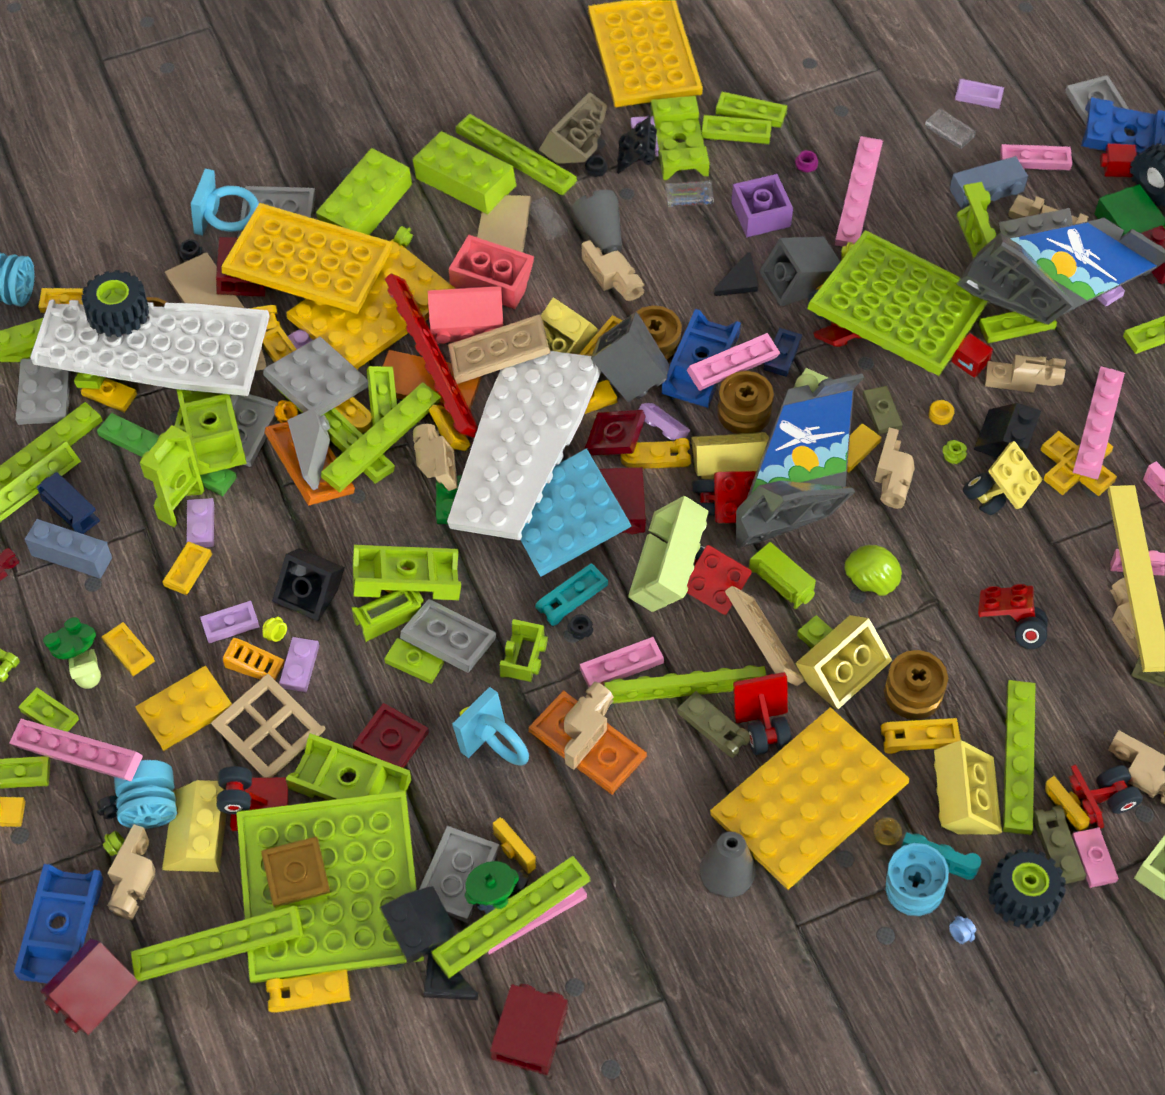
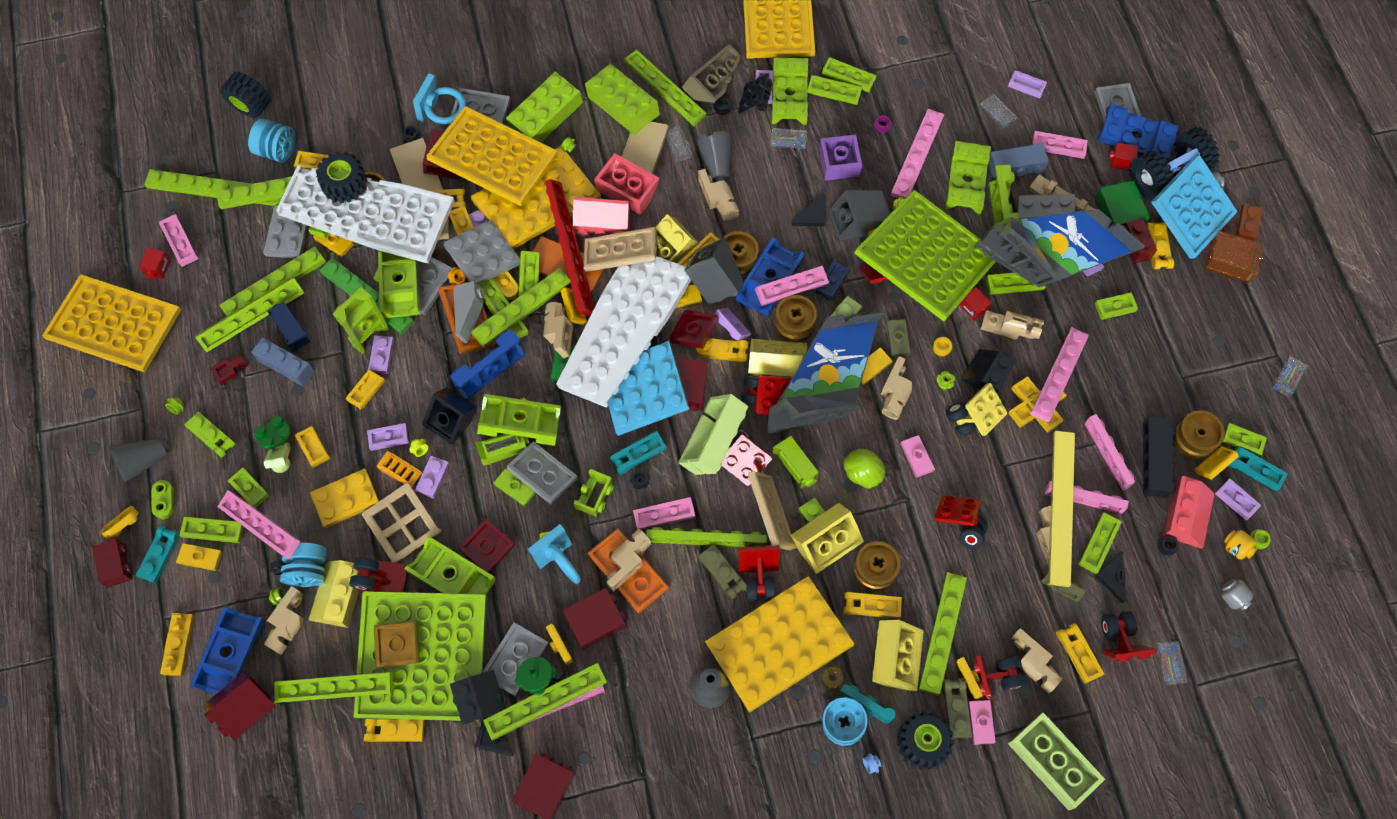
camera: 10 degrees right, 10 degrees up
(331, 533) = (472, 380): none -> blue piece
(556, 806) = (595, 618): none -> dark red brick
(930, 191) = (972, 162): none -> lime piece
(938, 547) = (917, 456): none -> bright pink plate

